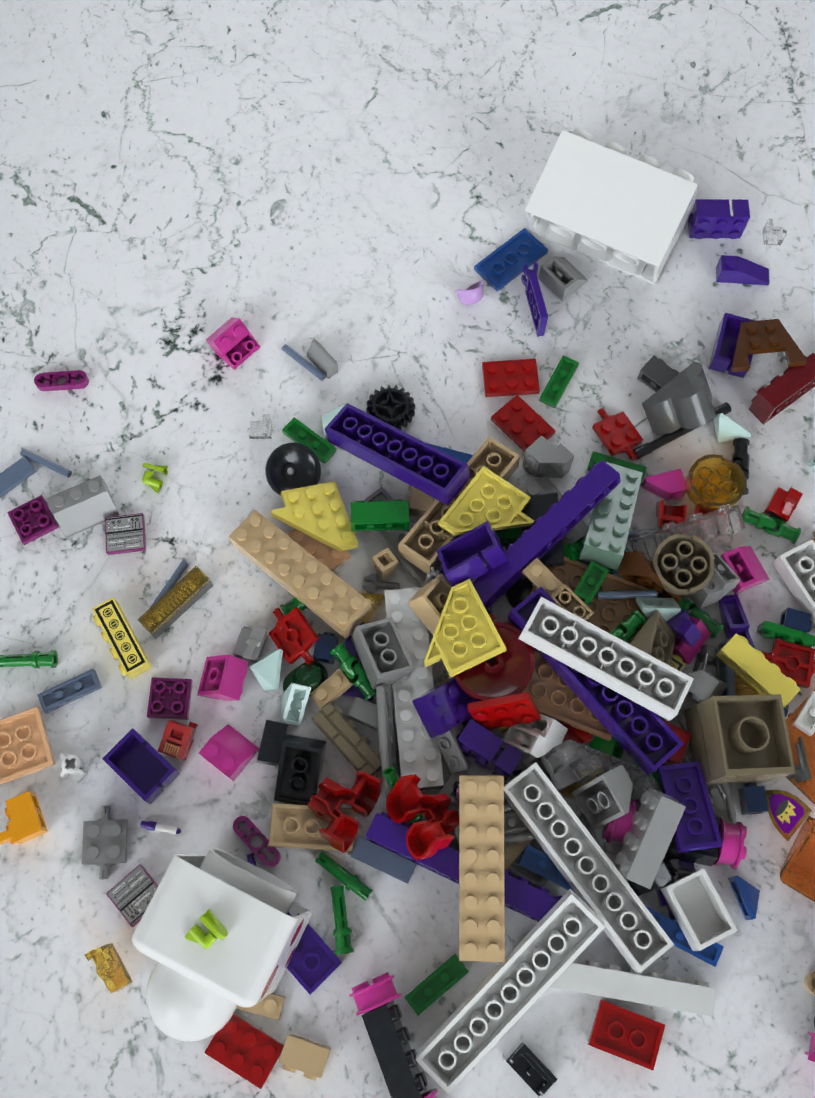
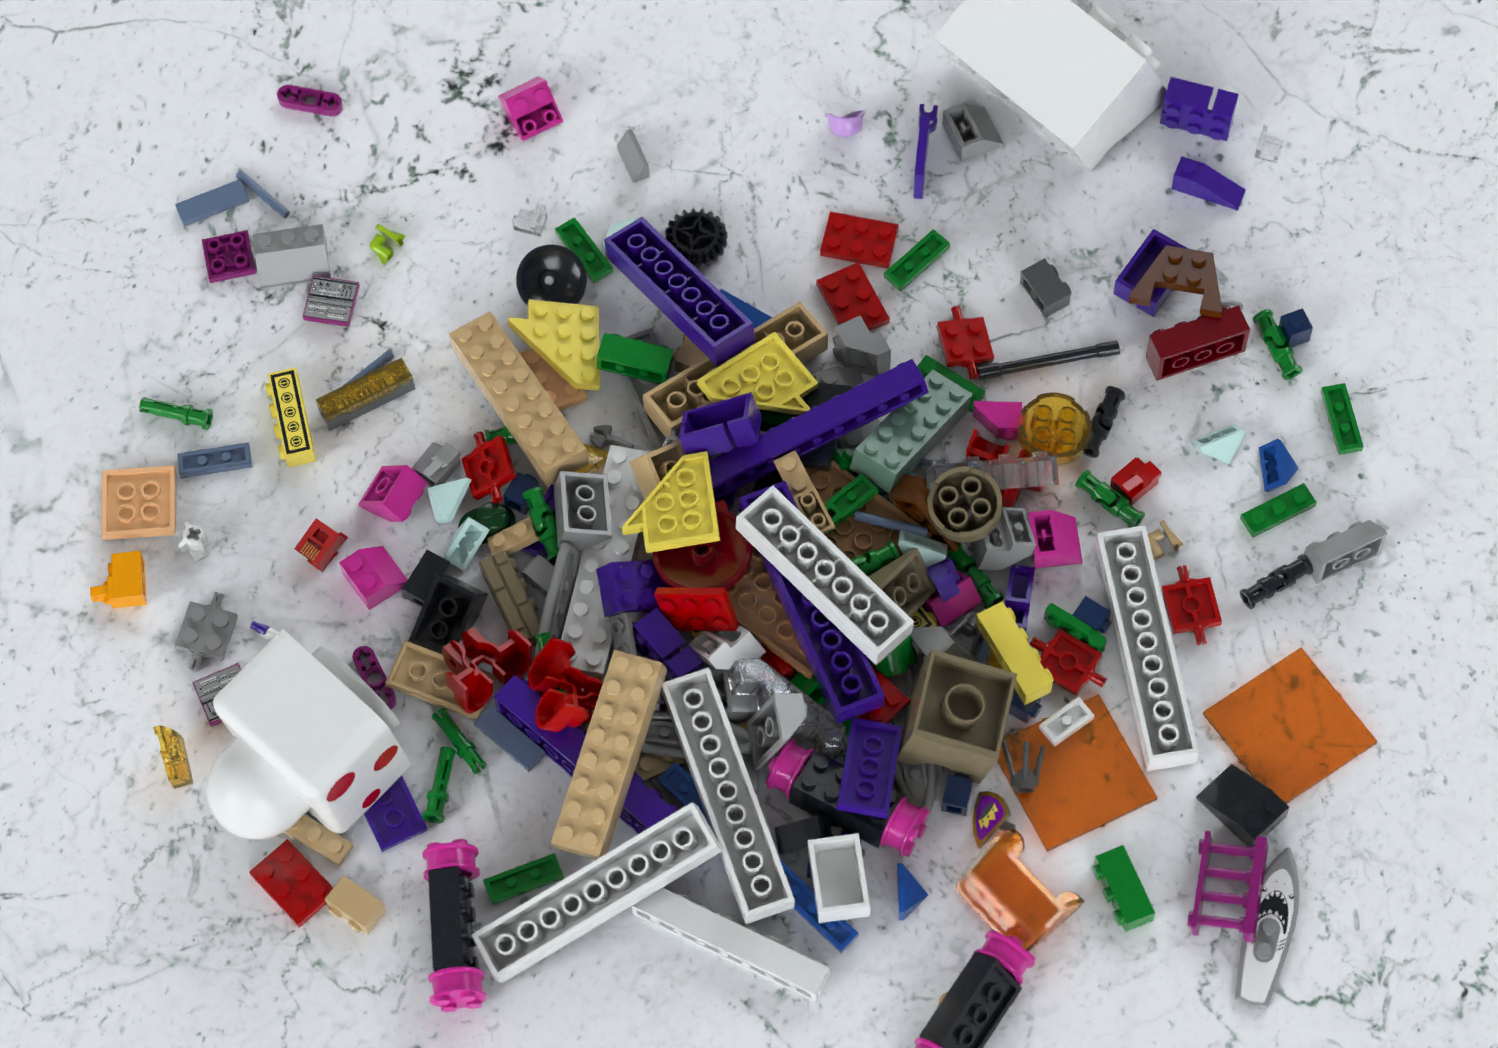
camera: 20 degrees right, 5 degrees down
(141, 766) = (271, 560): dark purple piece -> none
(169, 698) = (325, 499): magenta tile -> none
(216, 931) = (281, 708): lime piece -> none
(303, 362) = (610, 155): sand blue piece -> none
(384, 564) = (623, 416): tan brick -> none
(508, 259) = (928, 85): blue tile -> none
(531, 1069) = (596, 992): black hinge -> none
(626, 1034) = (714, 989): red plate -> none
(649, 837) = (805, 778): light grey brick -> none
(681, 402) = (1054, 323): dark grey brick -> none
(727, 429) = (1104, 374): light aqua slope -> none

